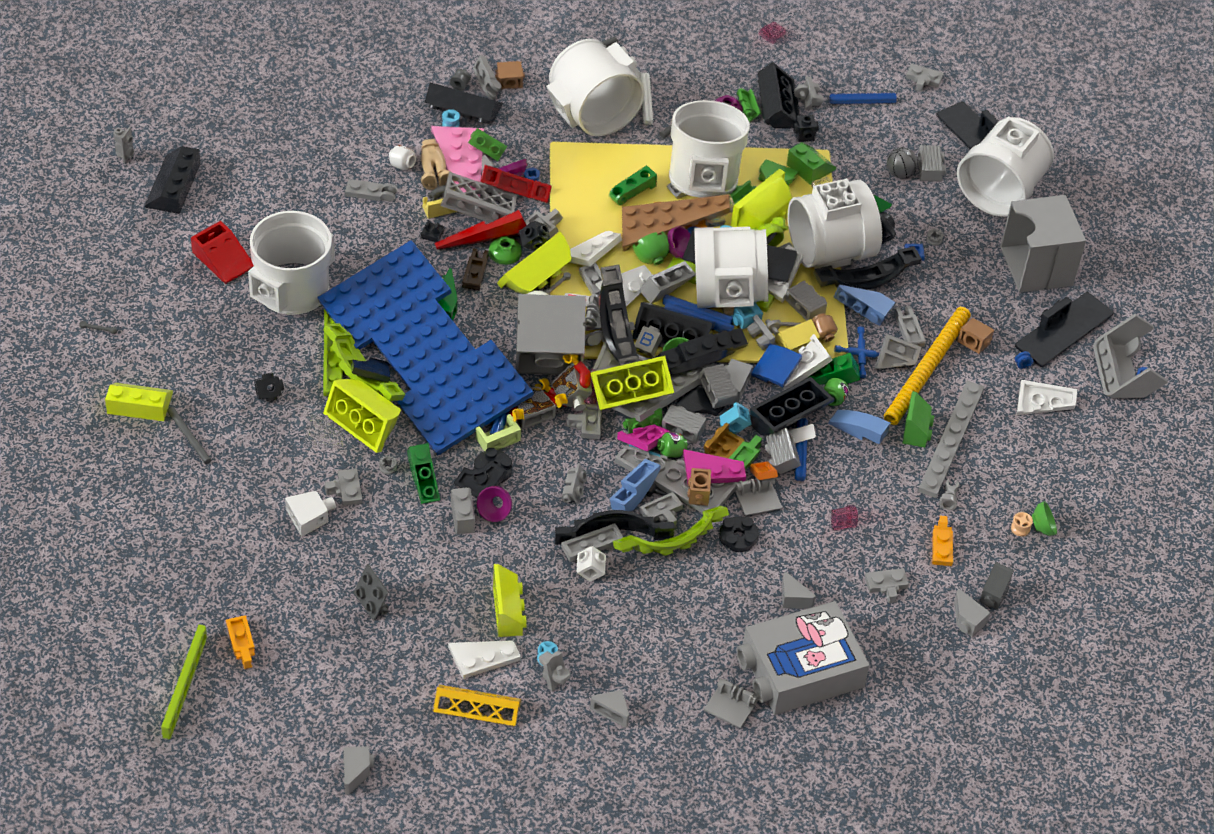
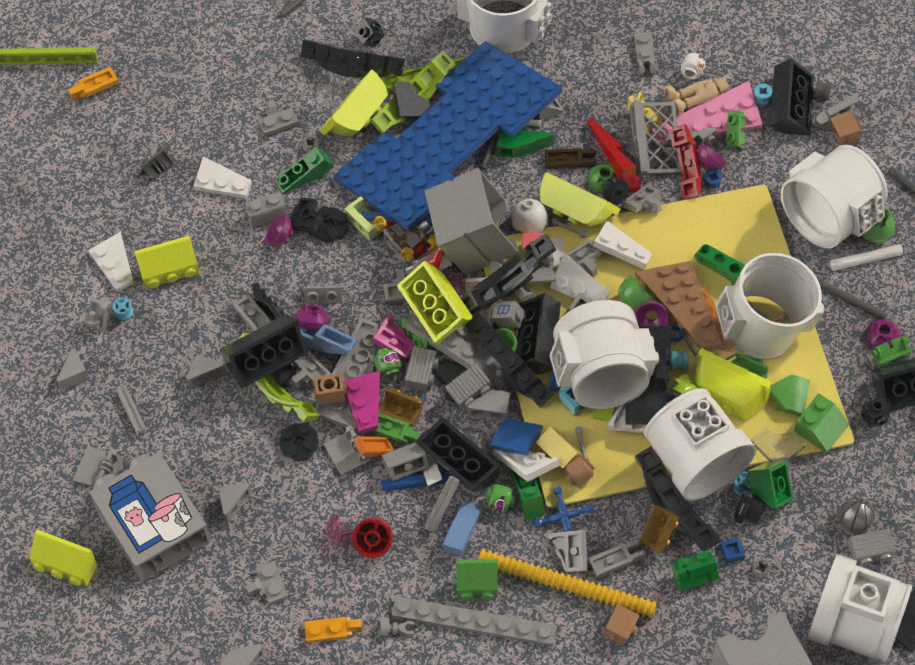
camera: 85 degrees right, 10 degrees up
(301, 411) = (351, 62): none -> black piece
(308, 511) = (238, 96): white torso -> none
(407, 548) = (221, 180): none -> white wing
(432, 231) = (608, 113): black tile -> none
(479, 697) = (62, 267): yellow fence -> none
(591, 563) = (222, 324): white brick -> none
(606, 494) = (311, 317): none -> magenta piece
(641, 596) = (204, 370): none -> light grey slope
(647, 524) = (264, 350): none -> black slope
(669, 665) = (131, 409): none -> light grey axle
(737, 417) = (434, 410): medium azure brick -> none
(766, 330) = (558, 417): light grey hips -> none
(806, 300) = (612, 449): light grey brick -> none
(836, 431) = (441, 504): none -> light grey axle
(836, 740) = (62, 558): none -> neon yellow slope
(860, 486) = (372, 537): none -> red cylinder
(865, 302) = (631, 516): medium blue slope -> none
(894, 285) = (658, 529): none -> pearl gold bracket
(934, 275) = (695, 570): none -> green brick

